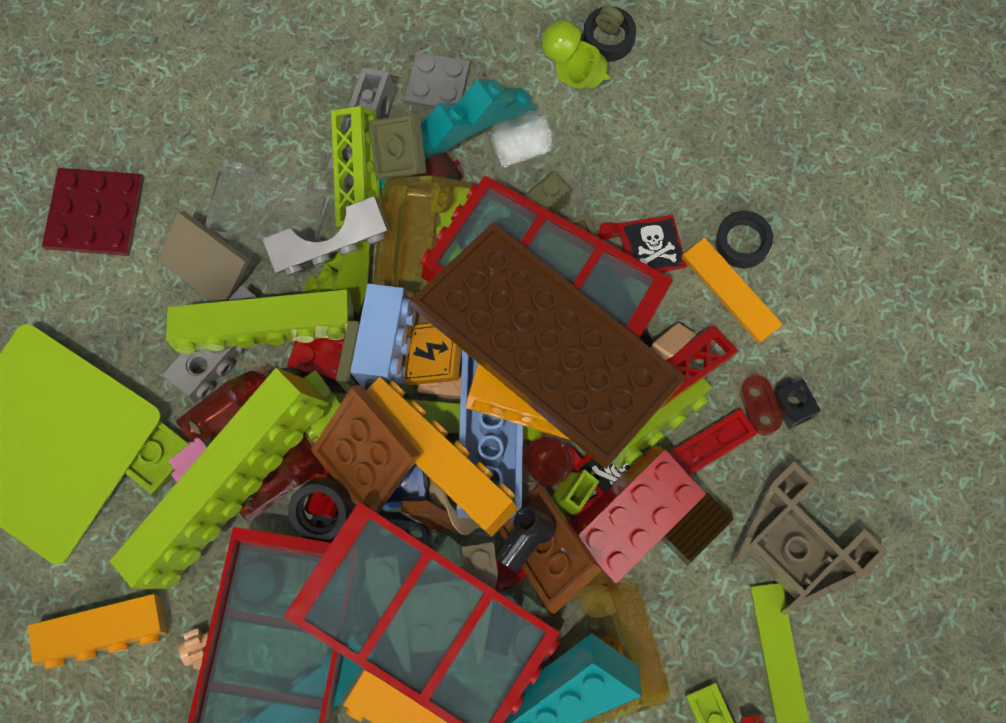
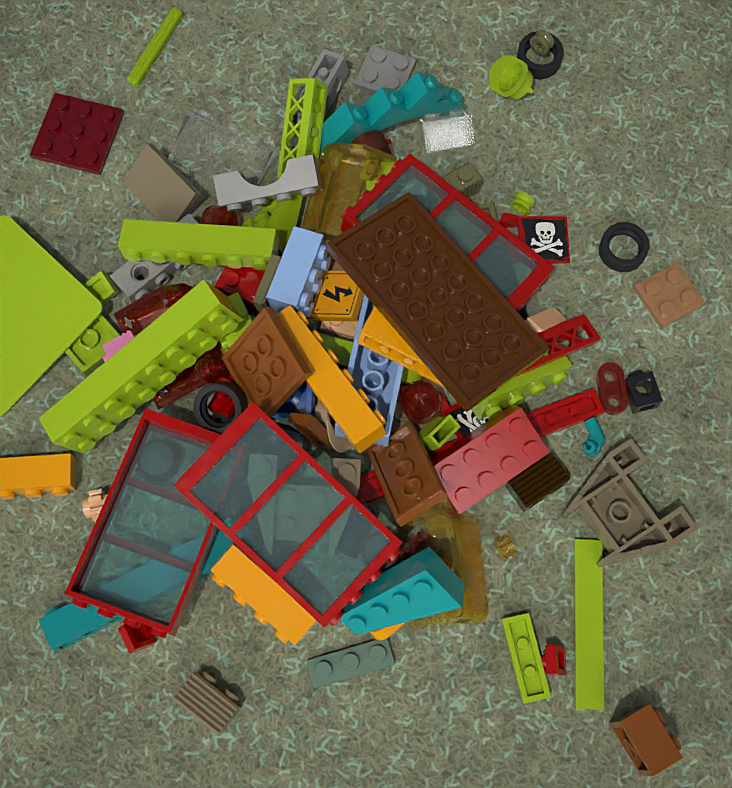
camera: 10 degrees right, 0 degrees up
(154, 389) = (101, 287): none -> lime plate
(166, 95) = (155, 47): none -> lime axle
(277, 284) = (219, 216): none -> clear red head
(397, 146) = (340, 117): olive tile -> none
(530, 530) = (394, 453): black piece -> none
(560, 40) = (496, 53): lime hair -> none
(575, 623) = (418, 541): none -> clear red gear
(620, 208) = (522, 203): none -> lime bush
(674, 612) = (505, 548): none -> clear yellow bush
(731, 290) = (605, 288): light orange tile -> none
(753, 465) = (596, 438): none -> teal arm
(804, 286) = (669, 295): none -> medium nougat plate

